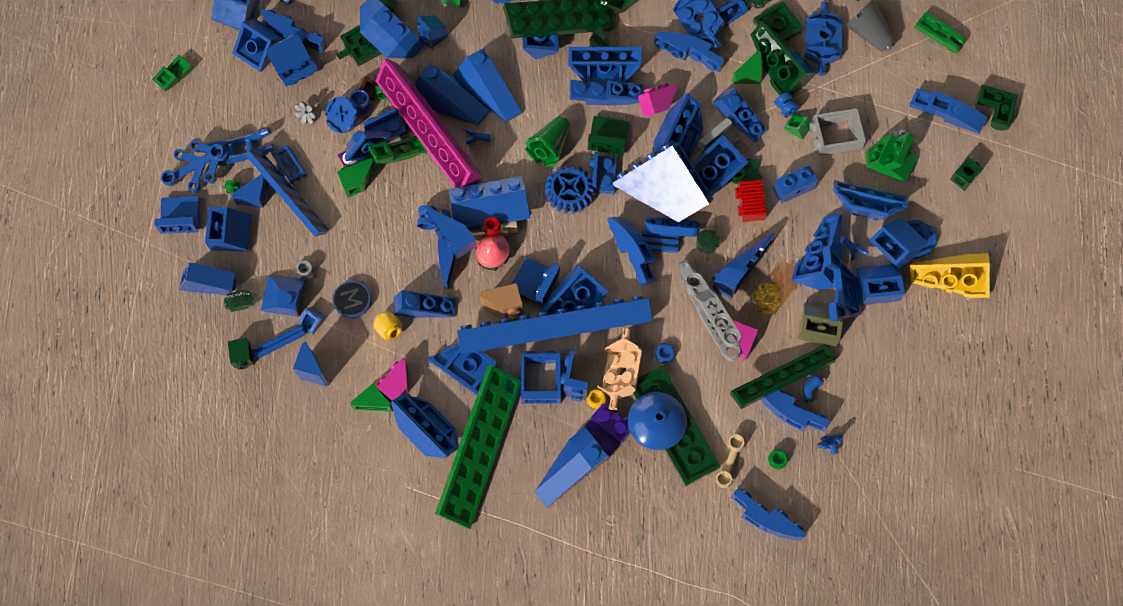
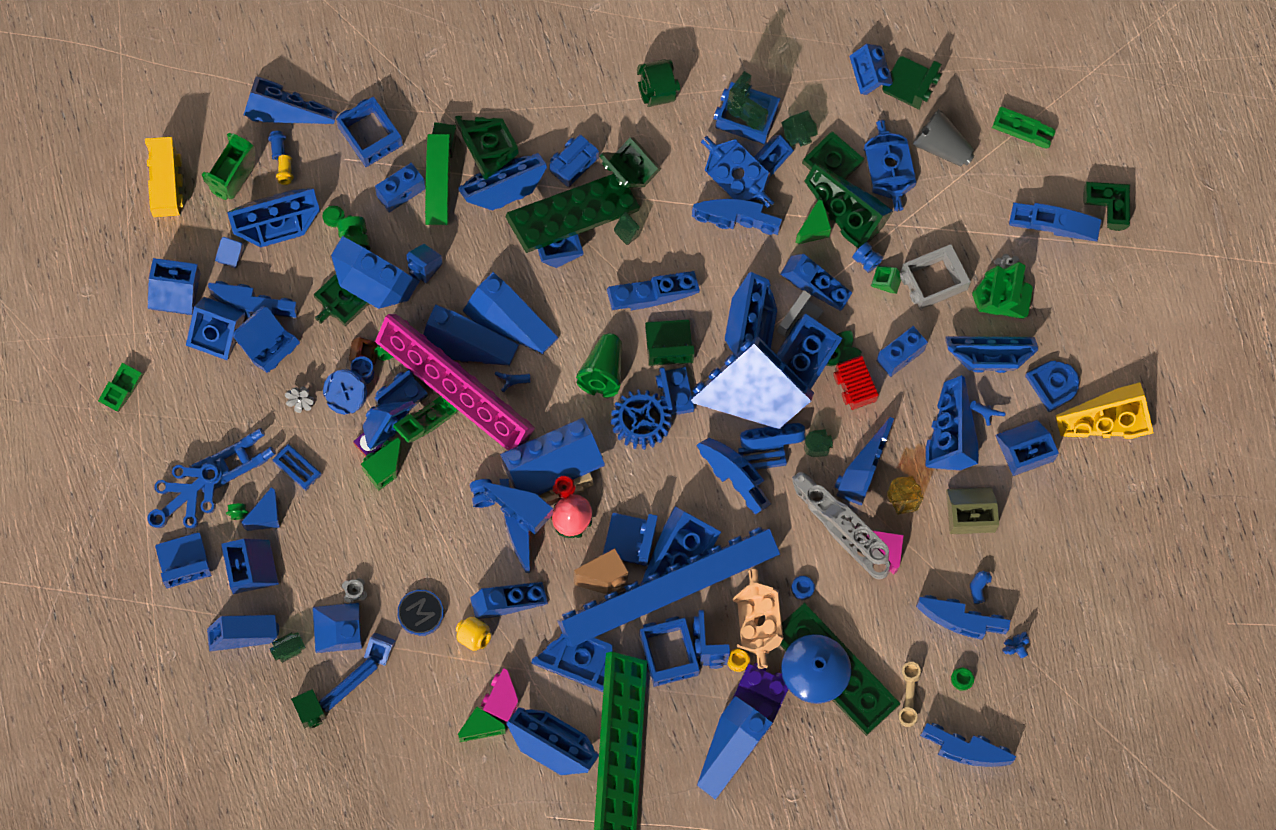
camera: 20 degrees left, 0 degrees up
(287, 192) = (307, 502): blue tile -> none
(307, 366) = (398, 706): blue slope -> none
(604, 63) = (643, 257): blue wedge -> none
(657, 100) = (717, 287): dark pink slope -> none
(783, 376) = (945, 582): dark green tile -> none
(846, 287) = (991, 461): blue wing -> none
(898, 242) = (1036, 393): blue slope -> none
(963, 180) = (1090, 300): dark green brick -> none

